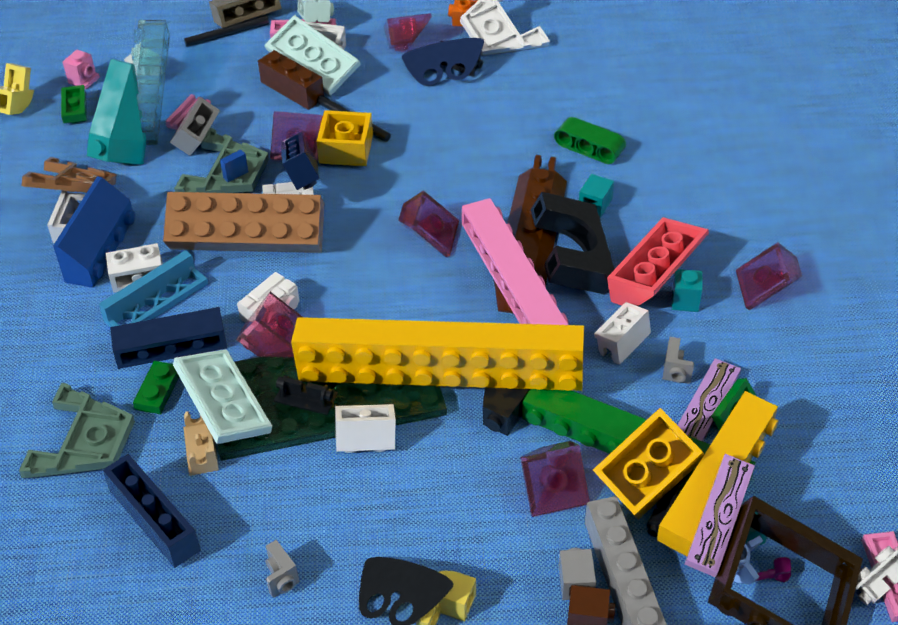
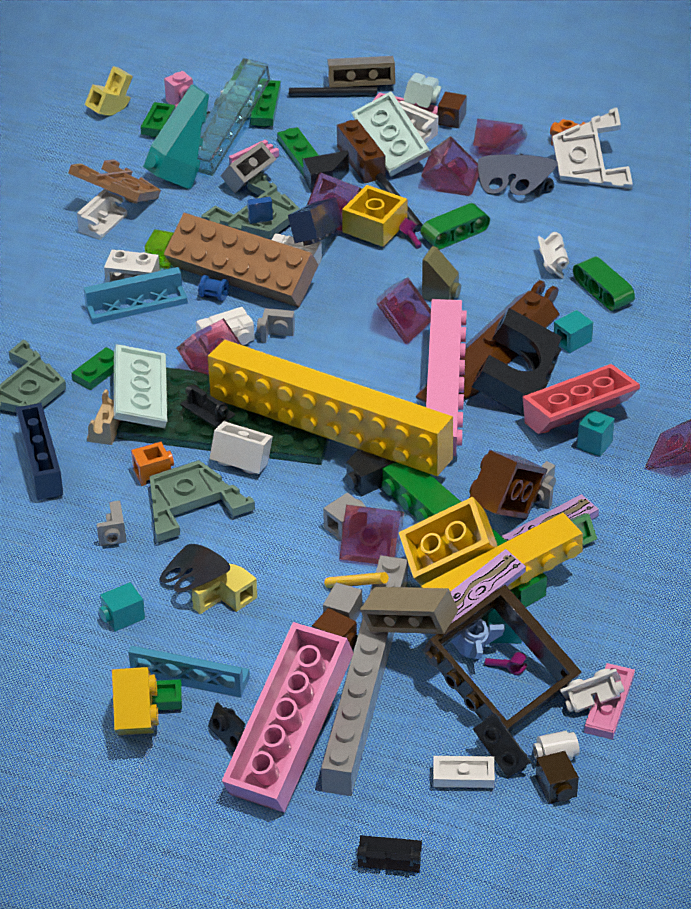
camera: 25 degrees right, 5 degrees down
(92, 232) = (114, 225): blue slope -> none
(152, 231) = (157, 245): none -> clear neon green brick
(168, 337) = (108, 328): dark blue brick -> none
(176, 69) = (265, 108): none -> green plate
(229, 260) = (213, 288): none -> blue bush
(230, 96) = (296, 146): none -> green plate
(262, 107) = (330, 164): none -> black slope
(278, 478) = (151, 461): none -> orange brick
(315, 276) = (276, 323): none -> light grey bracket
(332, 495) = (187, 489): none -> sand green wing
(349, 17) = (452, 109): none -> reddish brown brick
(378, 139) = (407, 227): none -> magenta hand
(383, 73) = (451, 169): none -> clear pink slope
(422, 126) = (455, 226): none -> green beam
(446, 182) = (439, 277): none -> olive slope
(508, 467) = (335, 514): none -> light grey brick
(534, 131) = (554, 254): none -> white hinge
(579, 539) = (357, 580): none -> yellow bar
(623, 332) = (519, 441): white hinge -> none
(664, 378) = (507, 484): none -> reddish brown brick
(680, 563) = (409, 610): none -> dark tan brick

